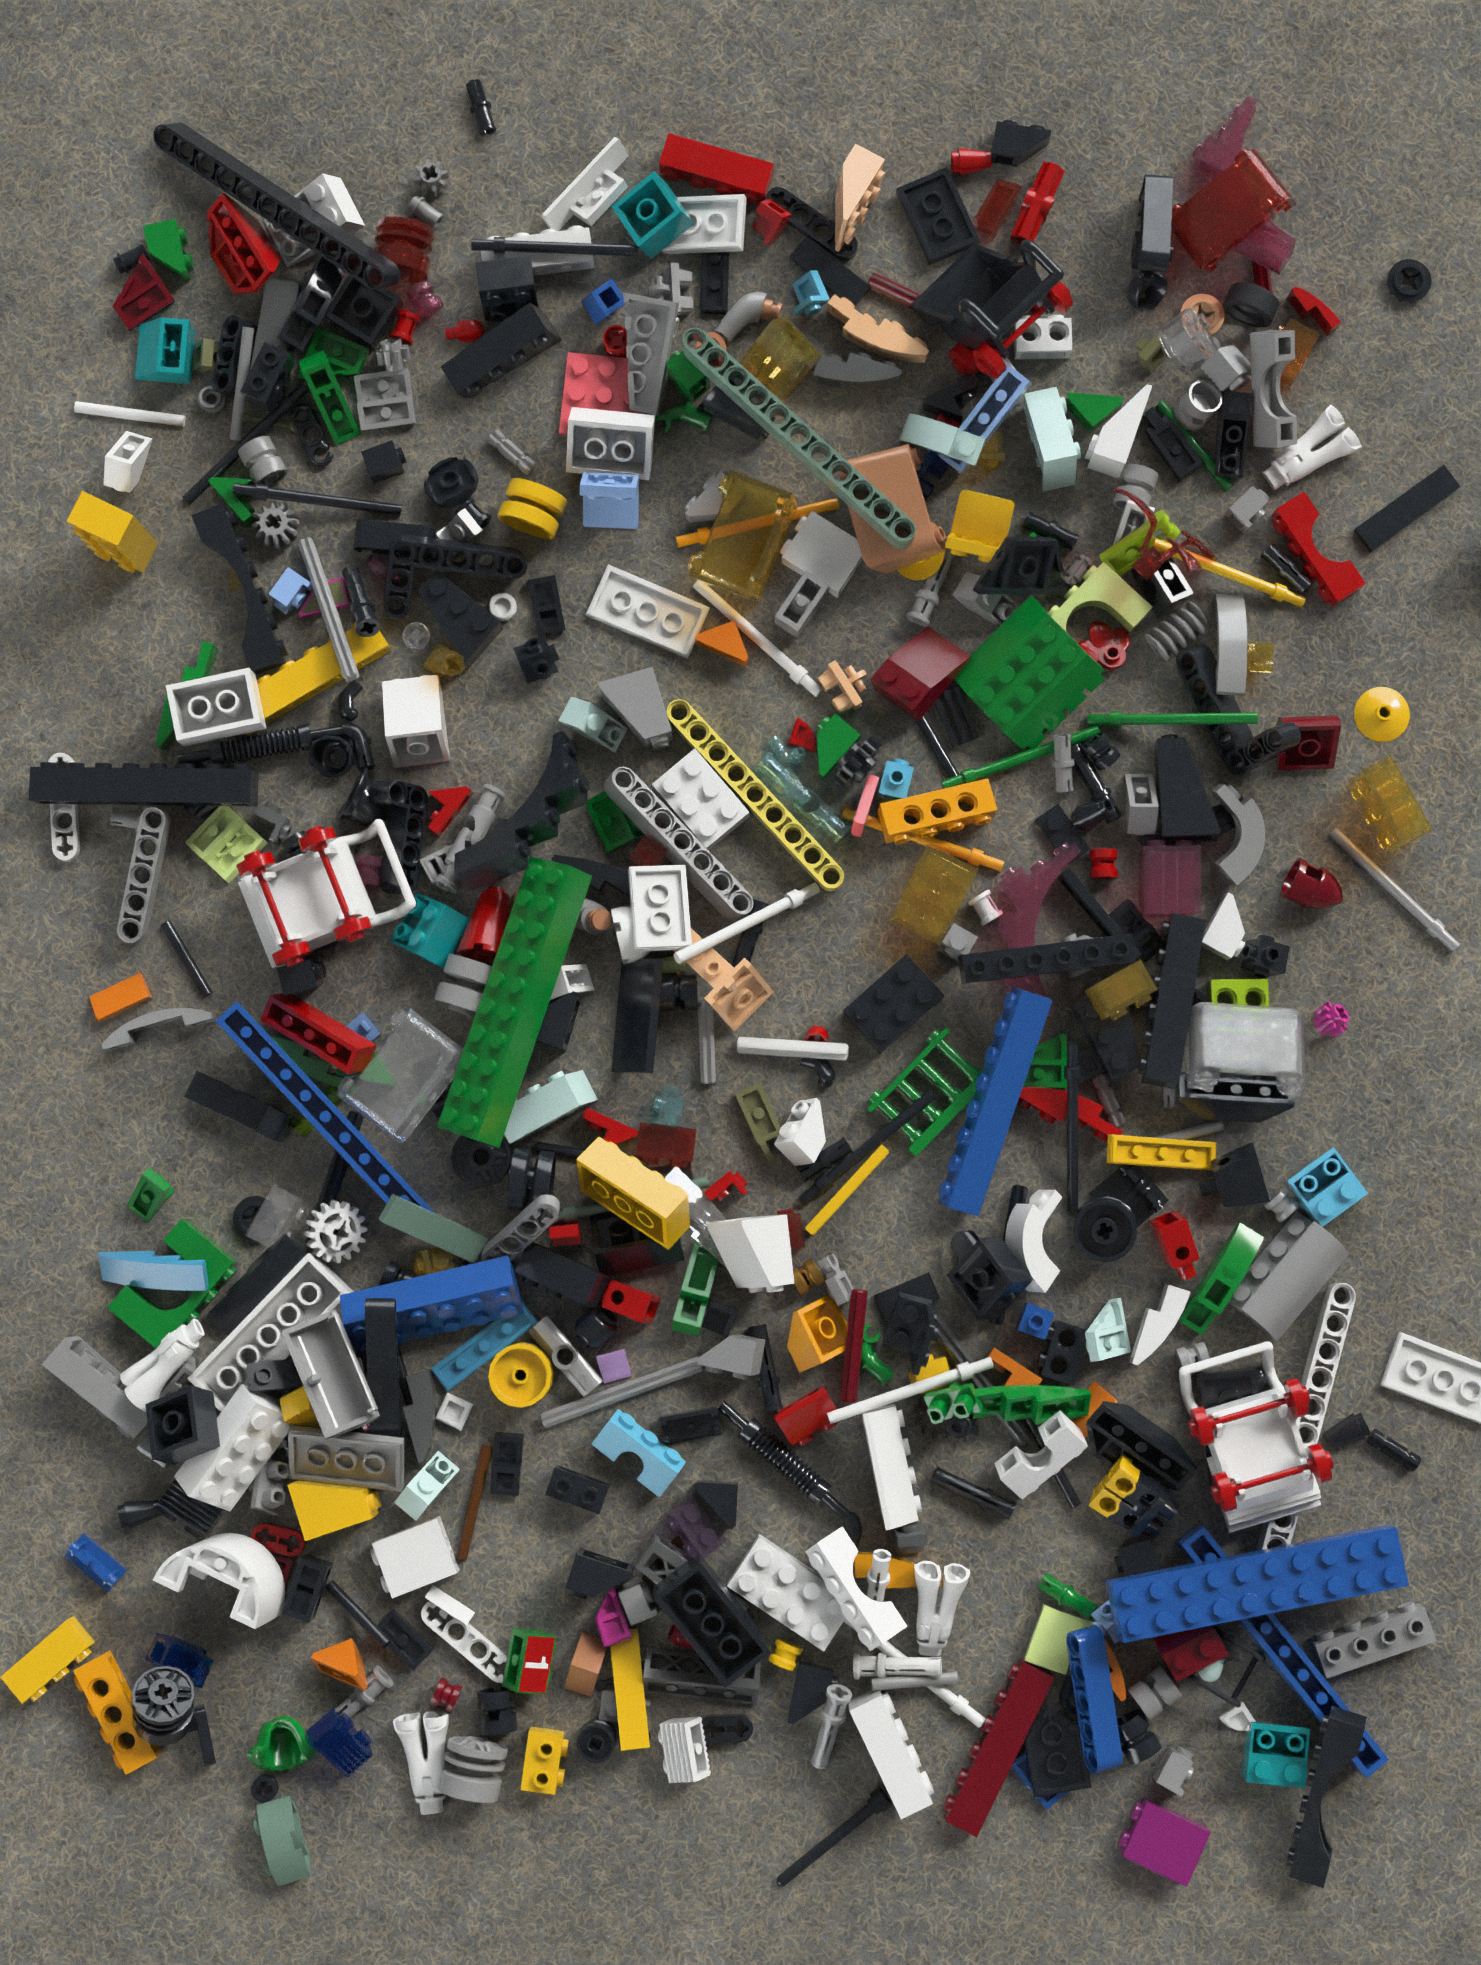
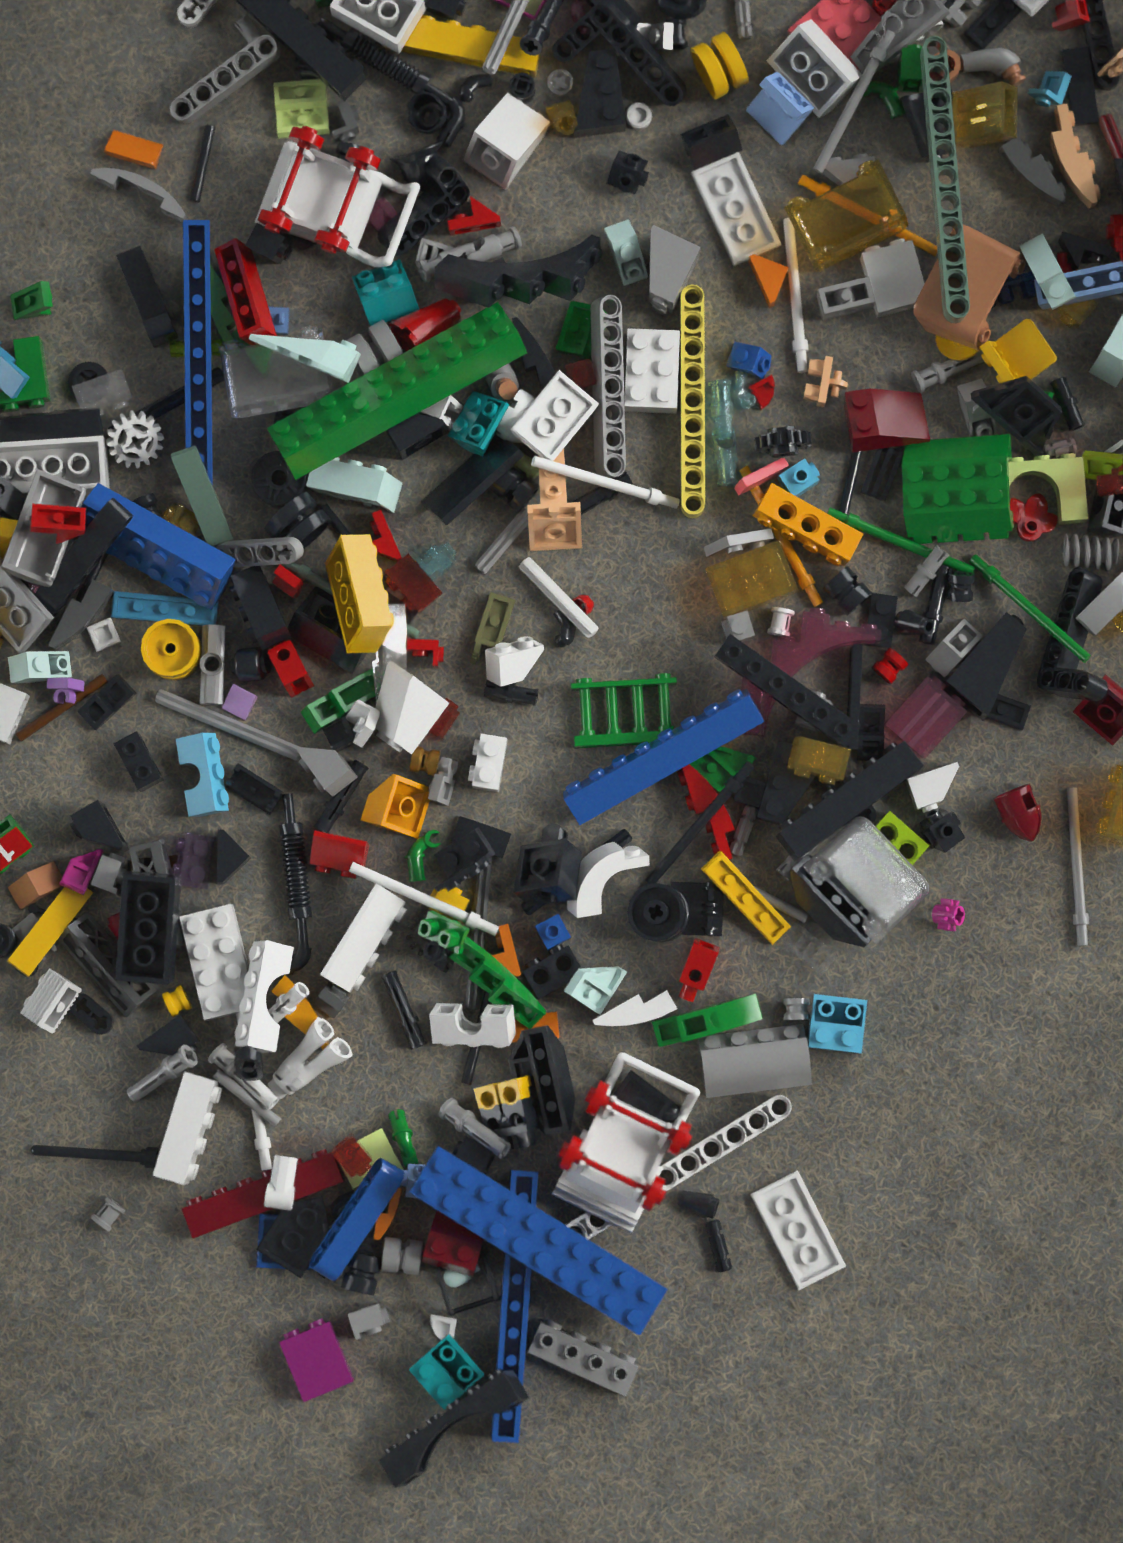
camera: 40 degrees right, 0 degrees up
(339, 1357) = (60, 520): none -> red slope
(392, 671) = (523, 92): none -> black wheel
(431, 1027) = (323, 355): none -> light aqua wedge
(464, 1483) = (65, 686): none -> medium lavender tile
(546, 604) = (669, 142): black slope -> none
(580, 575) = (711, 141): none -> black hinge
(601, 967) = (478, 422): none -> teal slope
(652, 389) = (877, 56): none -> light grey bar
(730, 1287) = (365, 721): none -> white bracket
(769, 721) = (749, 359): none -> blue bracket
(825, 1182) = (497, 709): black bar -> none
(833, 742) = (779, 412): green slope -> none
(847, 1189) = (507, 727): yellow tile -> none
(853, 1345) = (414, 835): dark red axle -> none
(860, 1232) = (489, 762): none -> white brick
(888, 1878) = (108, 1213): none -> light grey bush
(893, 1003) = (655, 629): black brick -> none
(894, 878) = (736, 542): none -> light grey wing
(894, 1655) = (248, 1063): none -> black plate
(1011, 1731) = (280, 1189): none -> white piece
(1016, 835) = (847, 590): none -> black wheel
(1043, 1651) = (352, 1156): none -> clear red brick
(1106, 1538) = (465, 1122): none -> light grey pin
(1192, 1355) = (635, 1050): light grey wheel -> none
(1236, 1178) = (781, 962): black torso -> none
(1249, 836) = (1000, 744): light grey arch -> none

